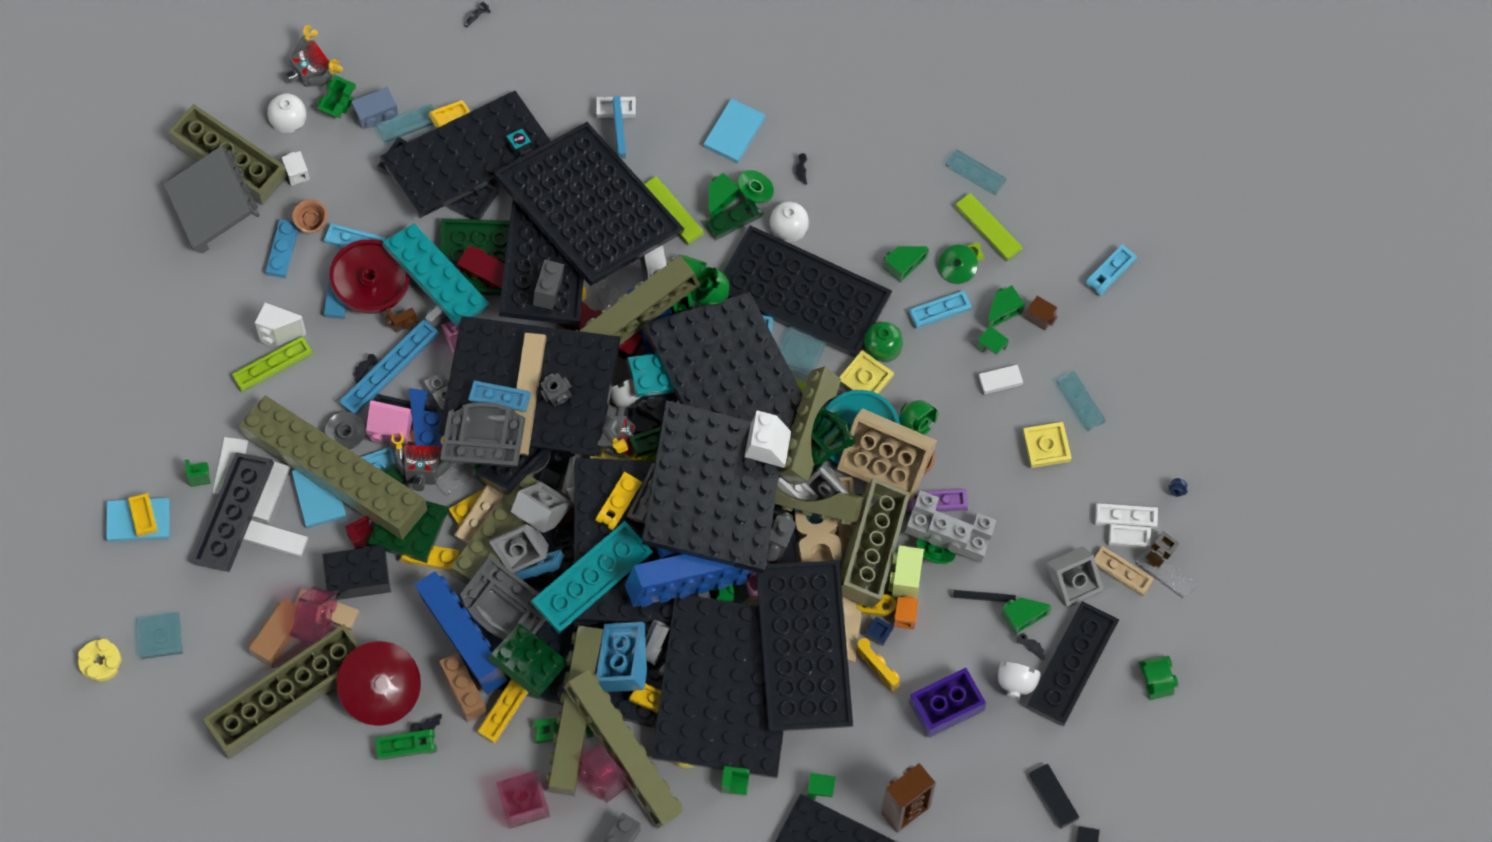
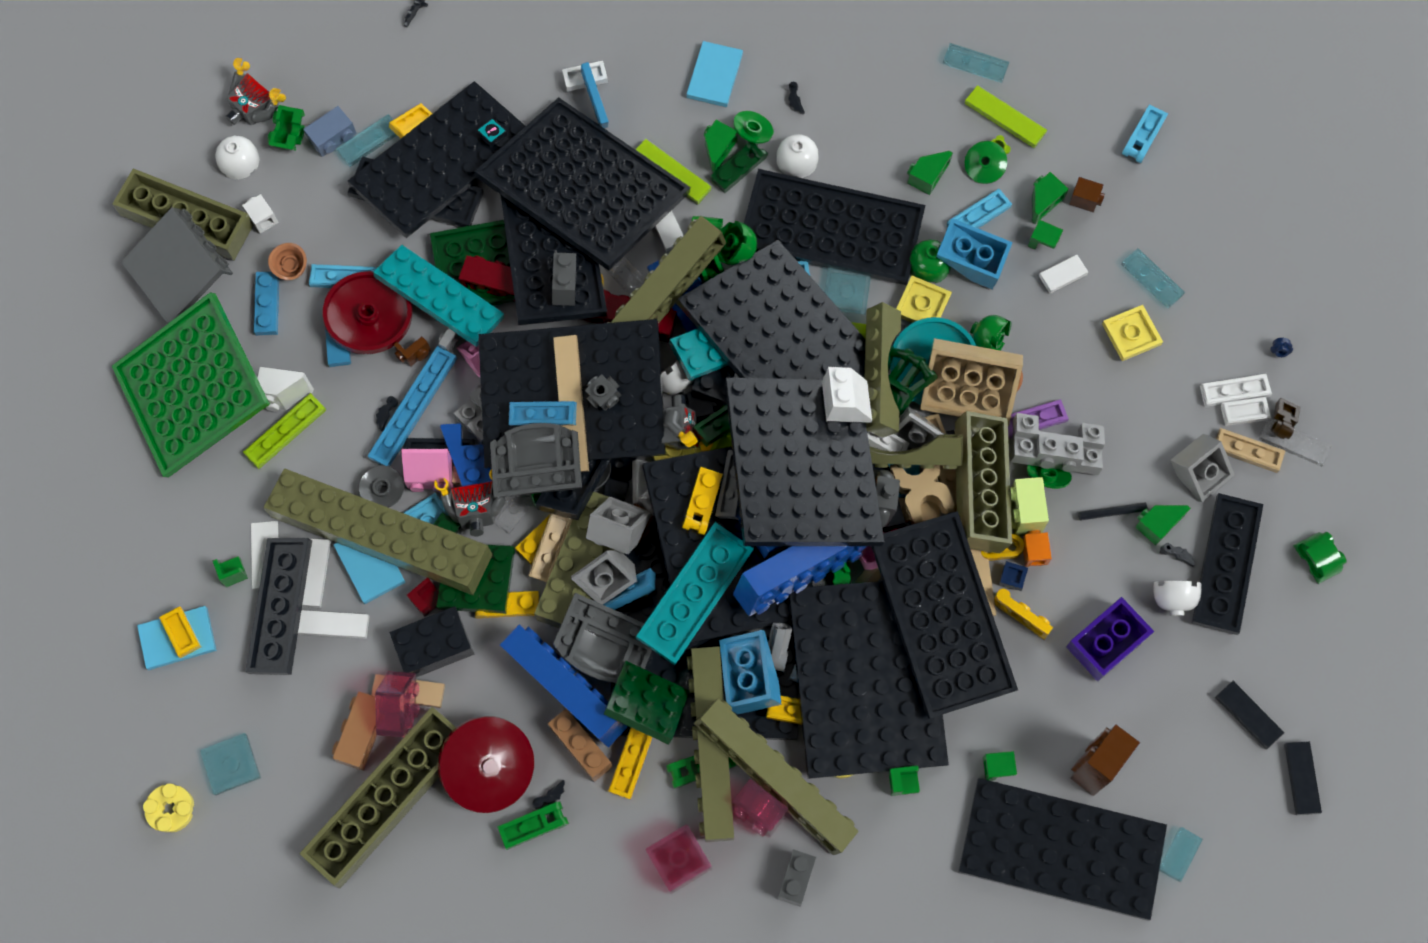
camera: 10 degrees left, 5 degrees up
(200, 305) = (190, 385): none -> green plate
(922, 342) = (974, 253): none -> dark azure slope

